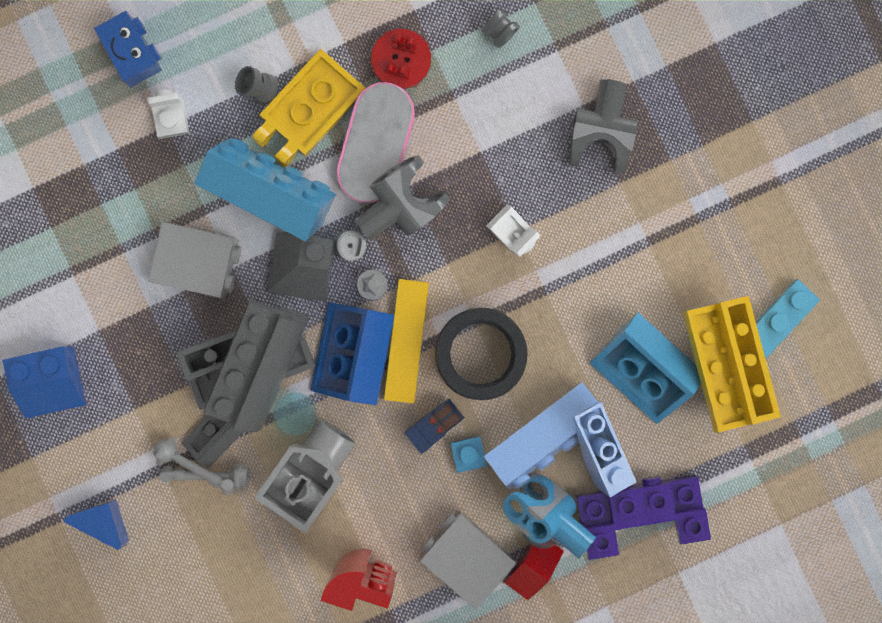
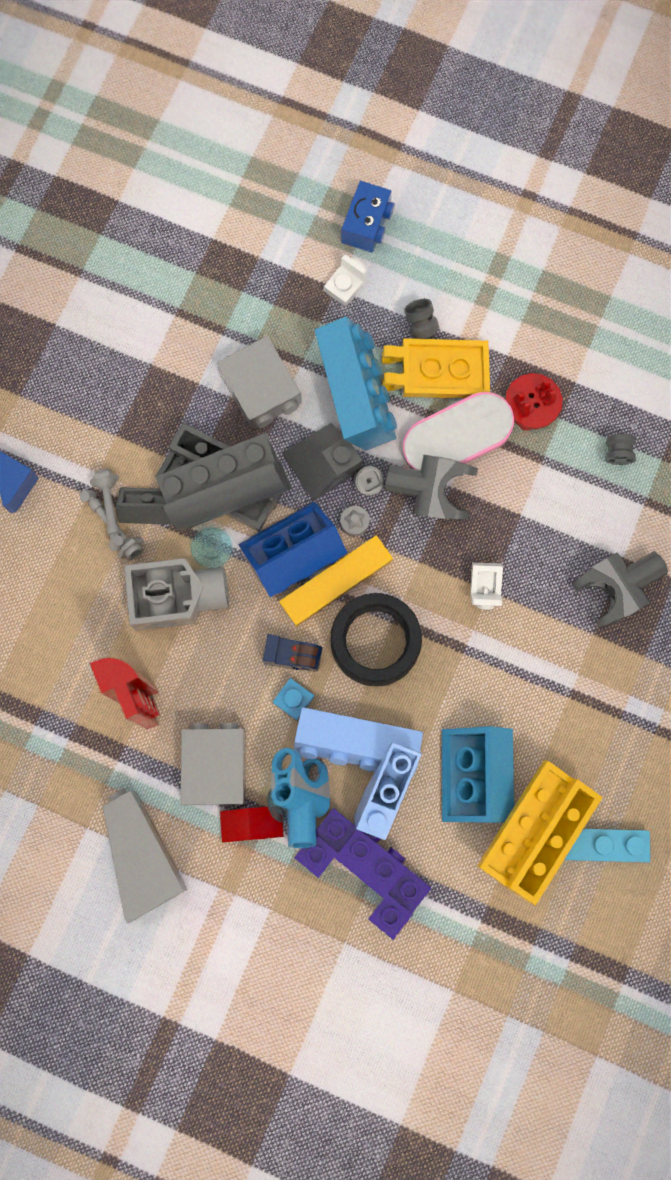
camera: 50 degrees right, 10 degrees down
(45, 381) = (83, 356): blue slope -> none

